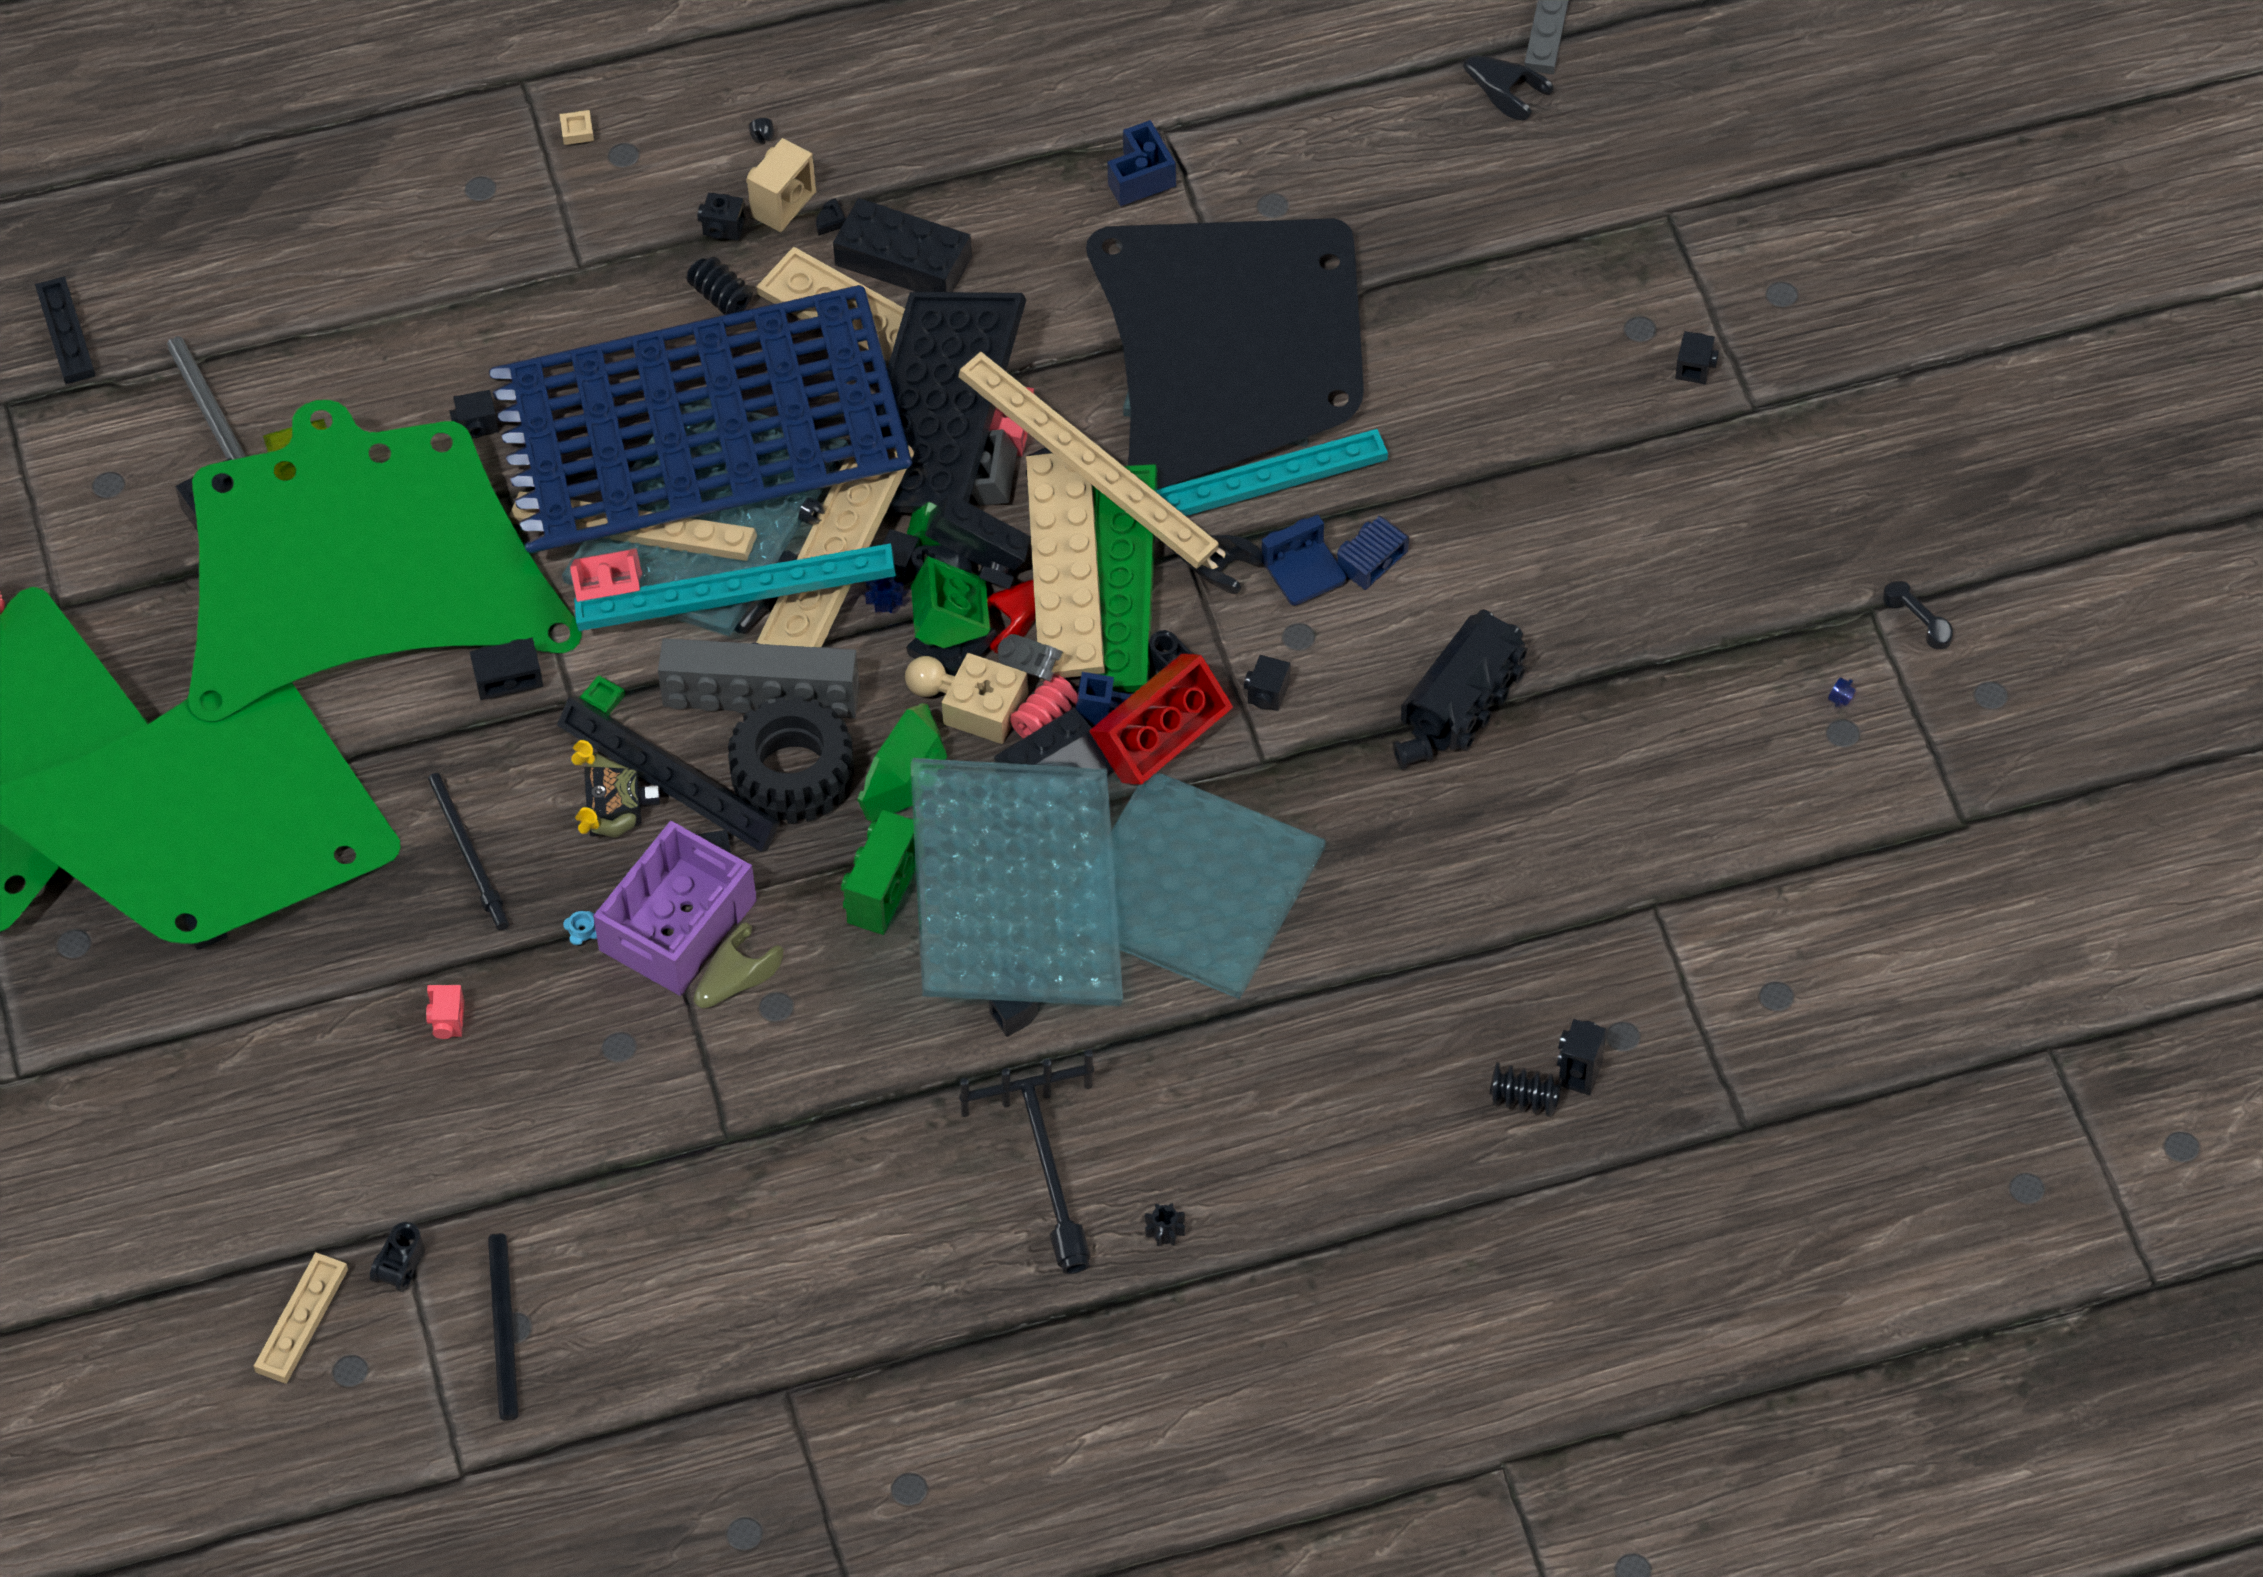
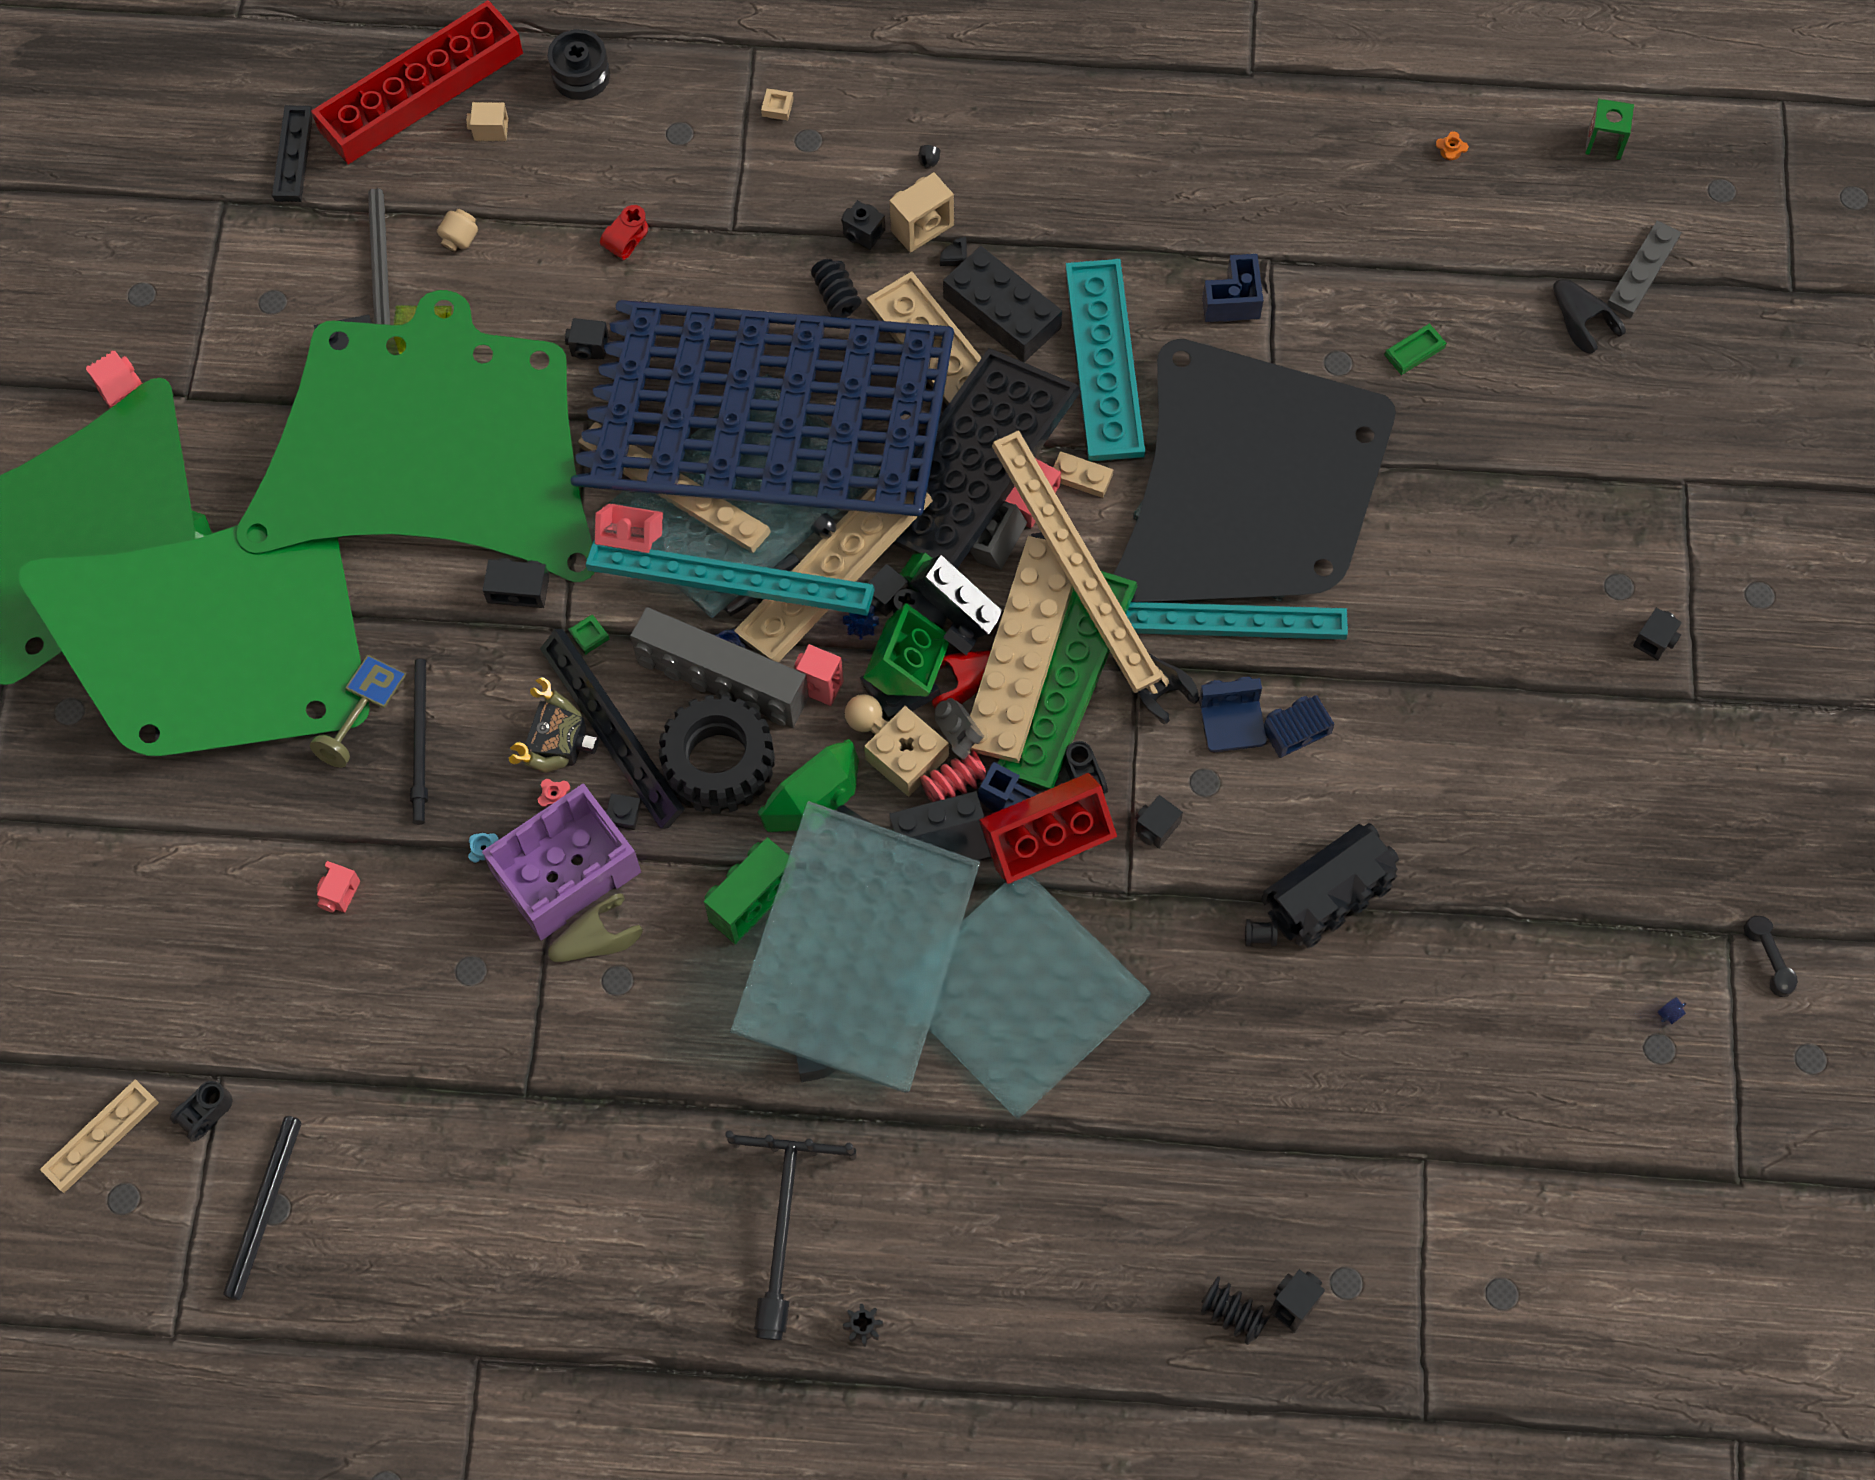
camera: 20 degrees right, 10 degrees up
(174, 217) = (417, 82): none -> red brick
(268, 235) = (488, 121): none -> tan brick
(284, 351) = (457, 230): none -> tan head
(344, 149) = (579, 64): none -> black wheel
(394, 812) = (373, 683): none -> olive piece
(469, 298) = (625, 232): none -> red piece
(626, 849) = (548, 787): none -> coral plate
(872, 651) = (822, 673): none -> coral brick
(1031, 266) = (1104, 360): none -> teal plate
(1057, 387) = (1083, 474): none -> tan plate
(1347, 168) = (1415, 349): none -> green tile

